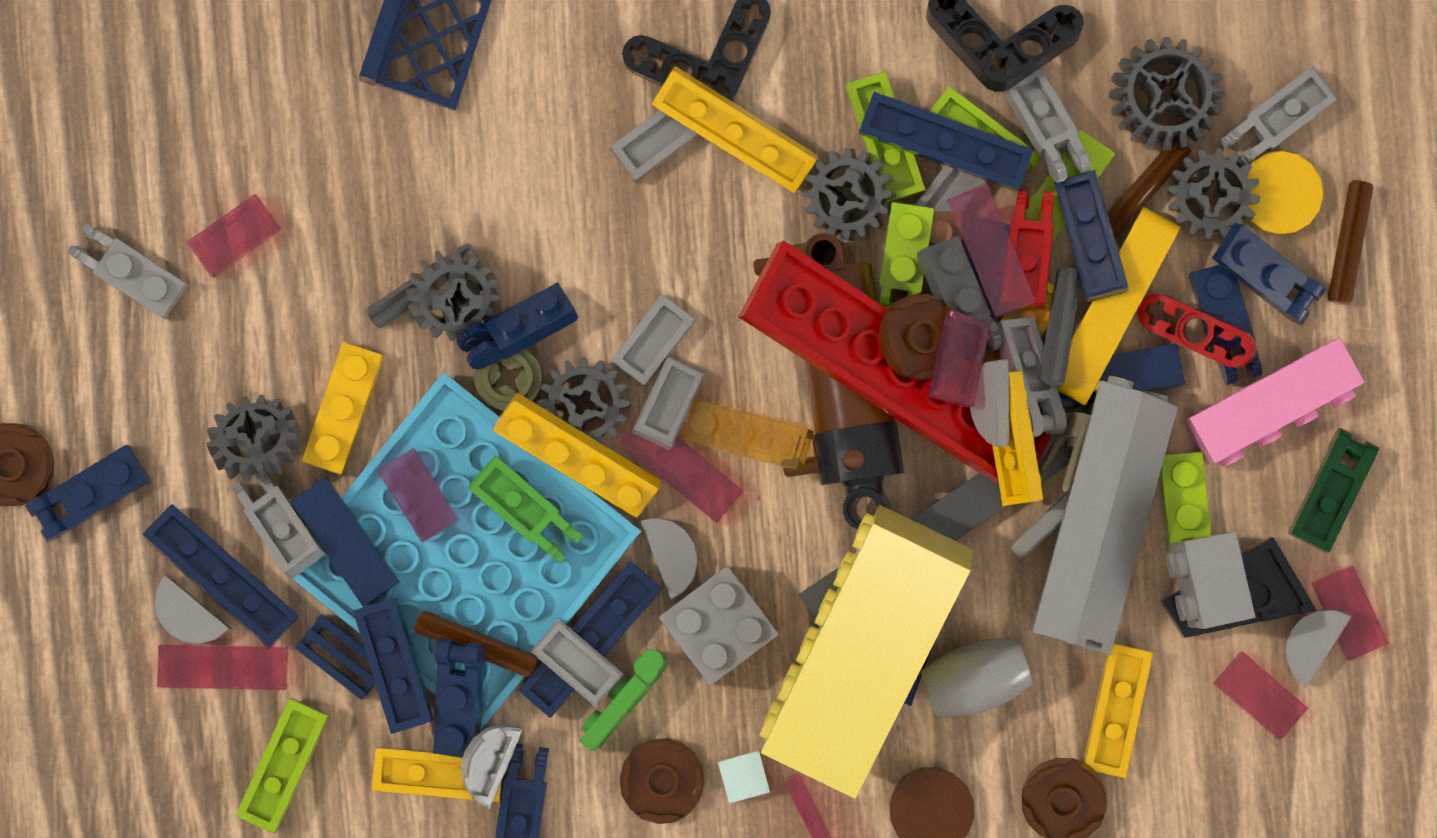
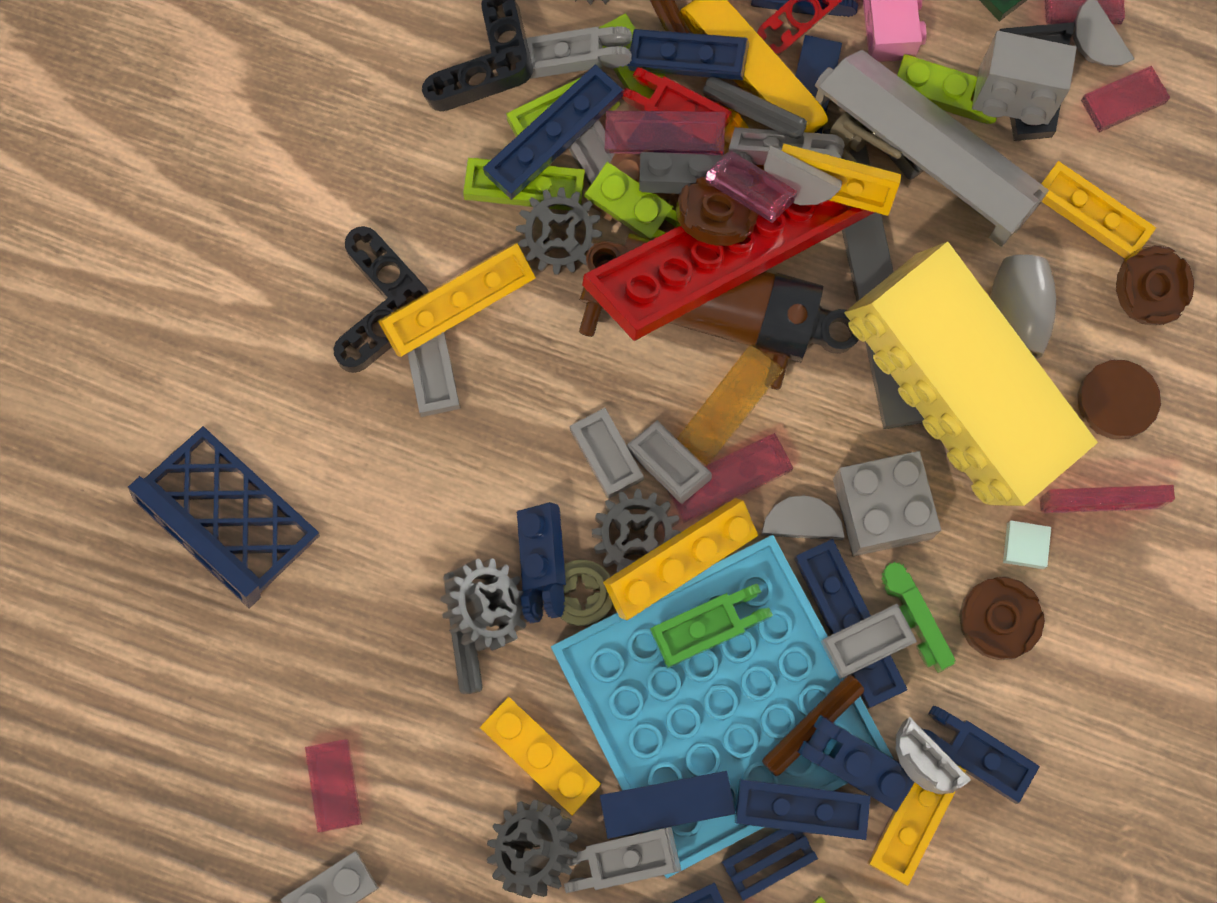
camera: 75 degrees left, 10 degrees down
(418, 495) = (654, 717): clear pink tile -> none
(1040, 527) = (912, 196): light grey tile -> none

